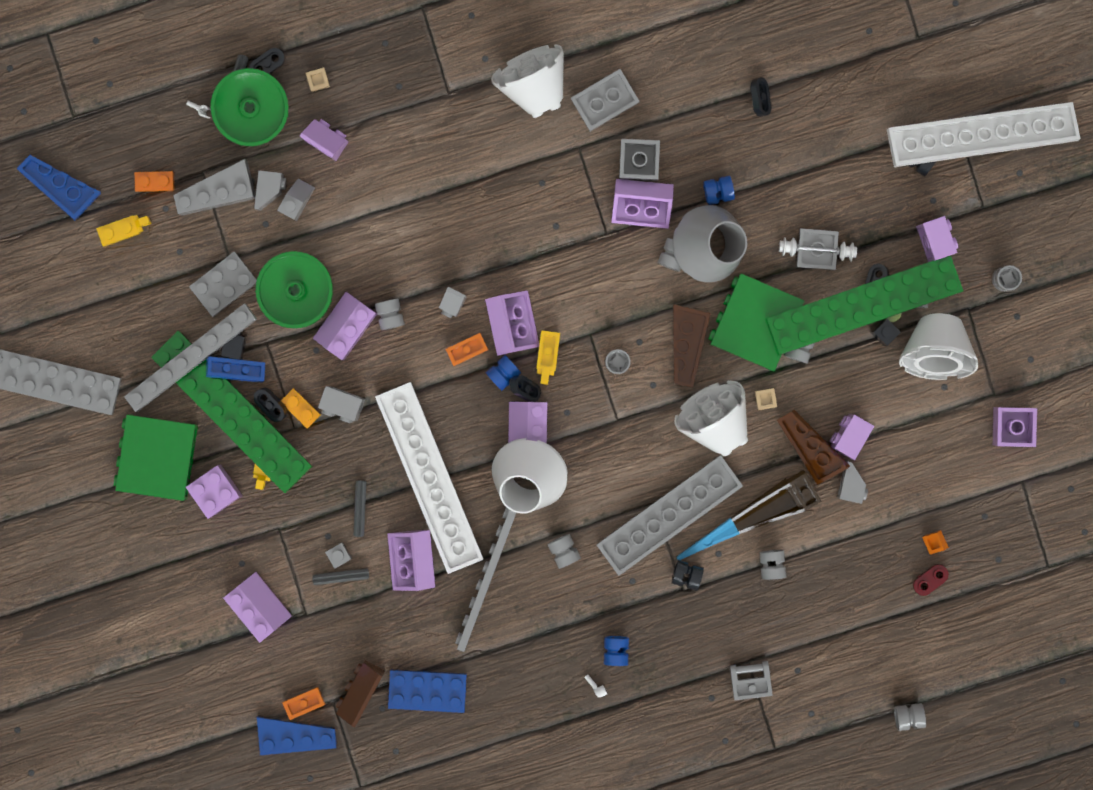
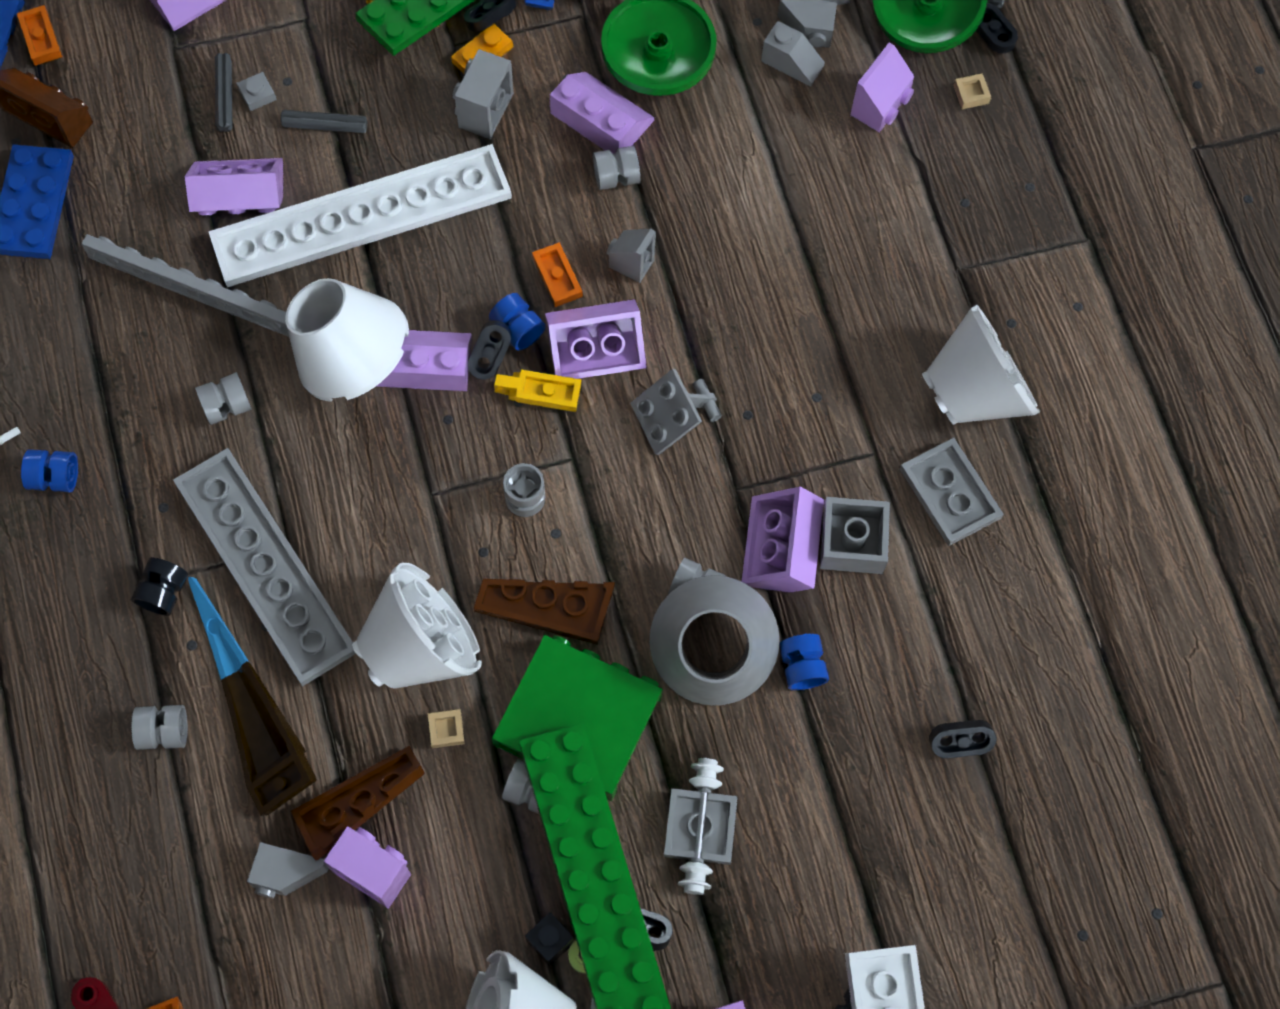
camera: 90 degrees right, 20 degrees down
(561, 275) = (670, 411): none -> light grey plate

